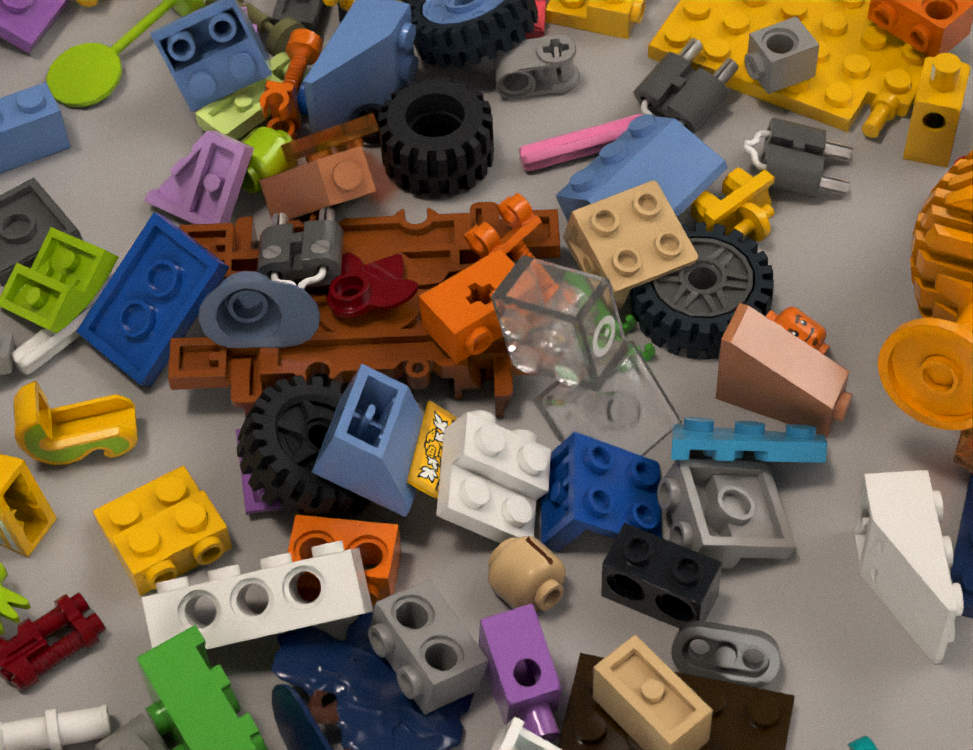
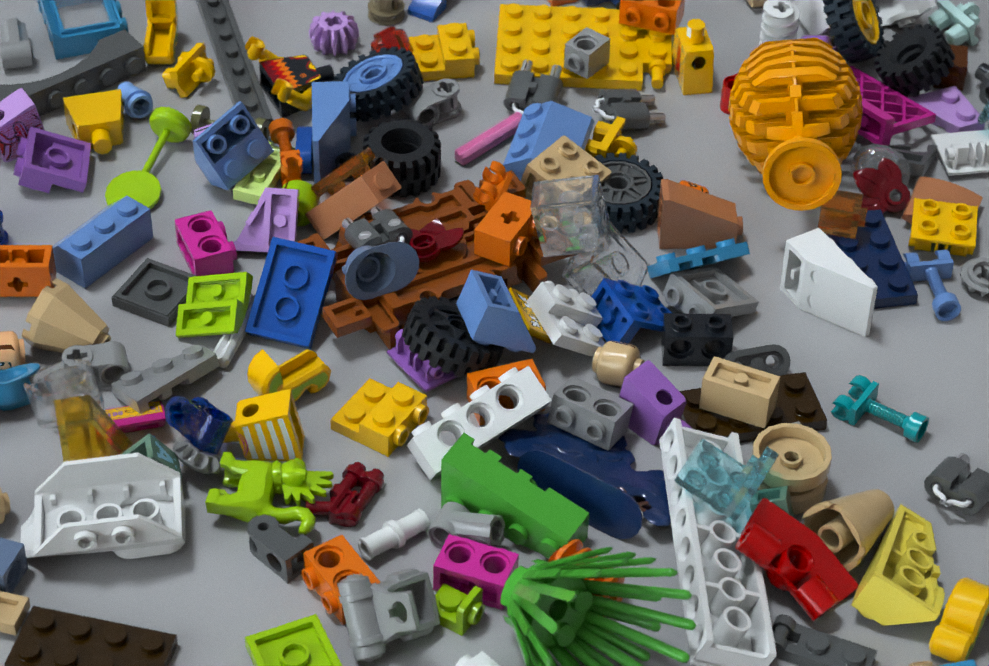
camera: 30 degrees left, 10 degrees down
(109, 186) = (205, 244): none -> dark pink brick

